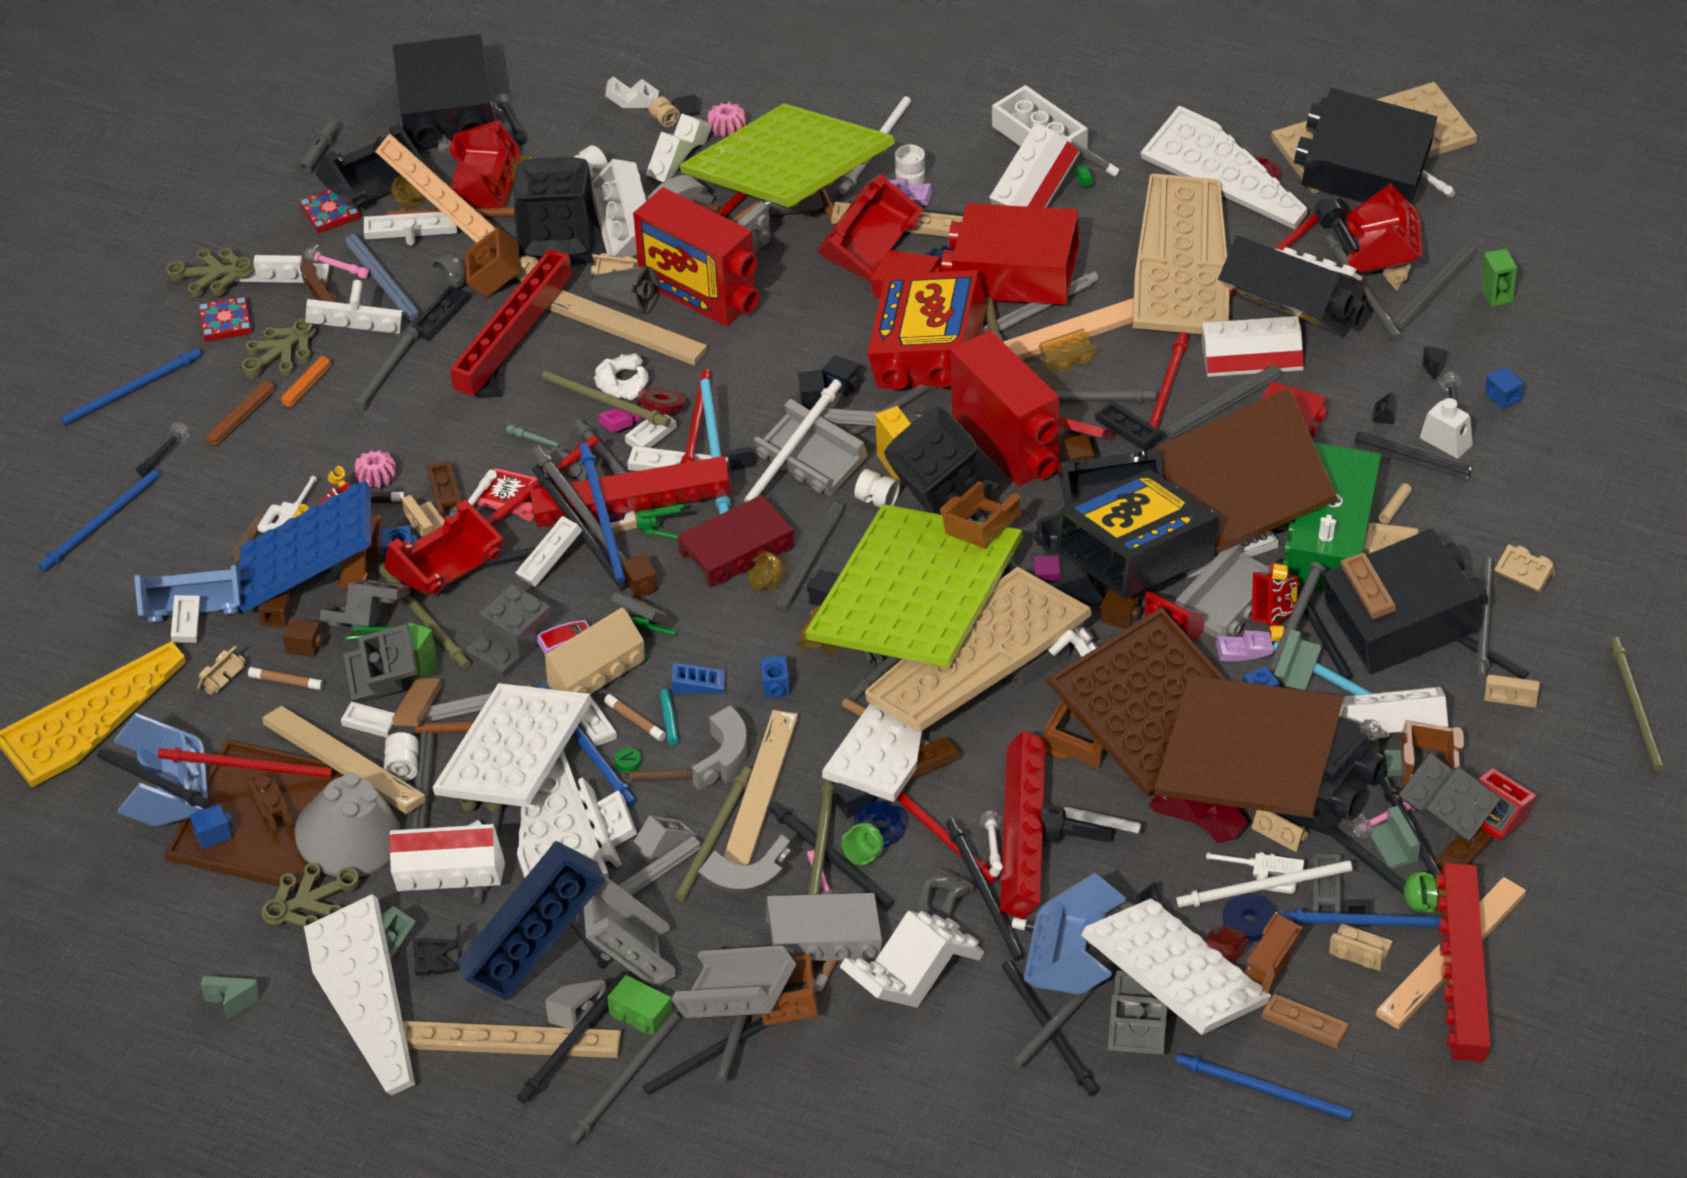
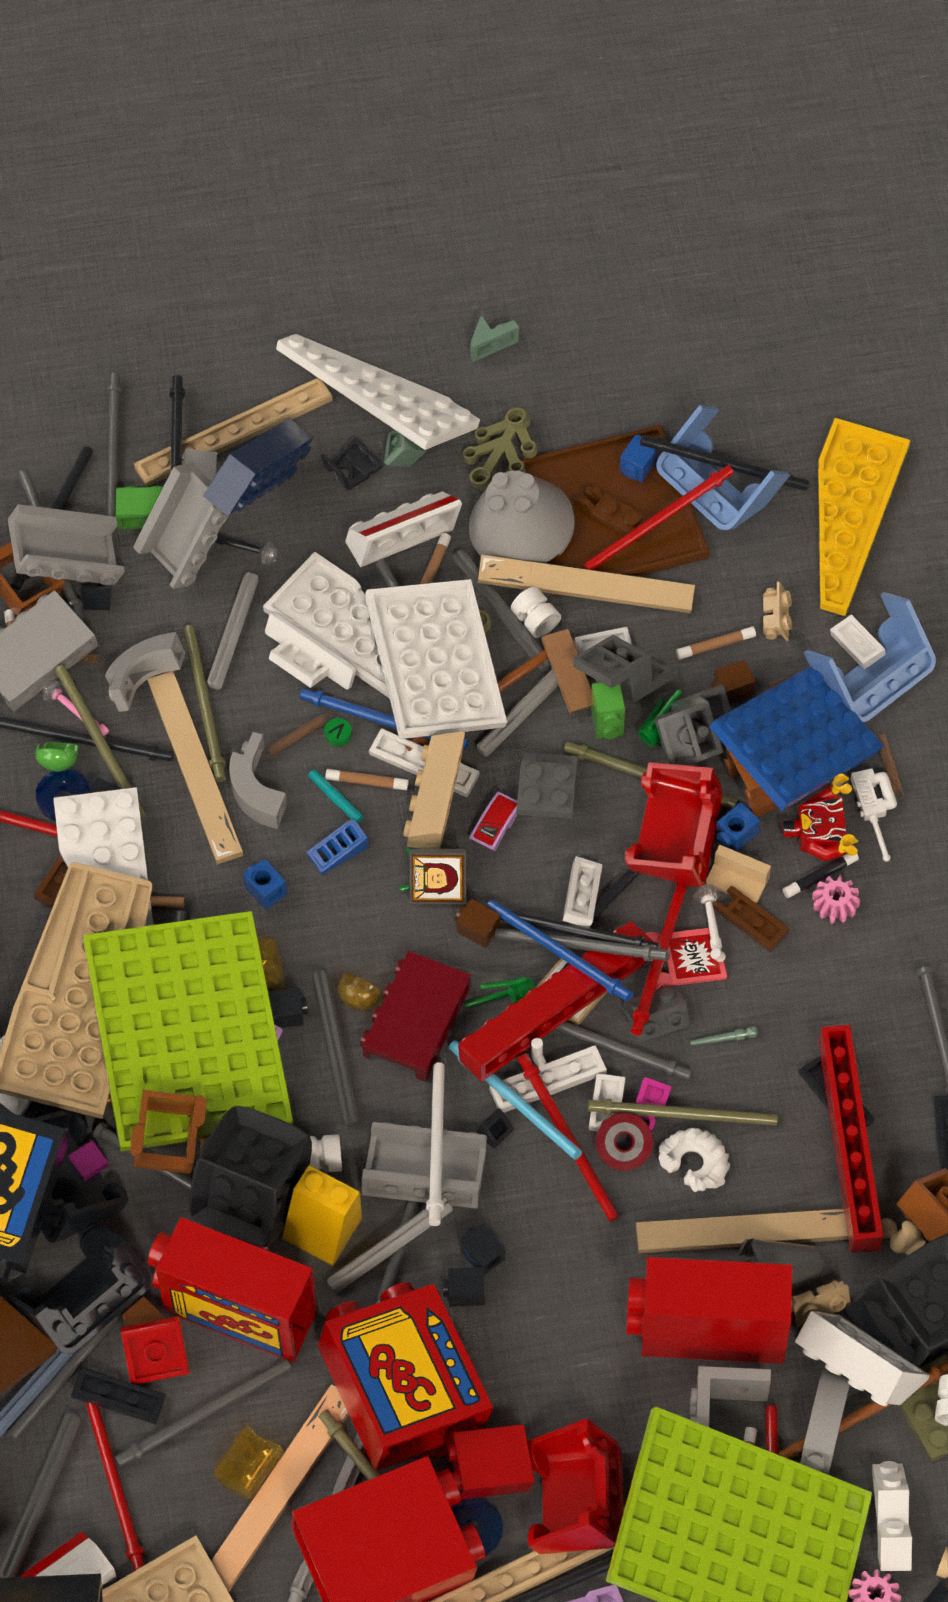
camera: 145 degrees right, 15 degrees up
(661, 835) = (240, 669): light grey slope -> none

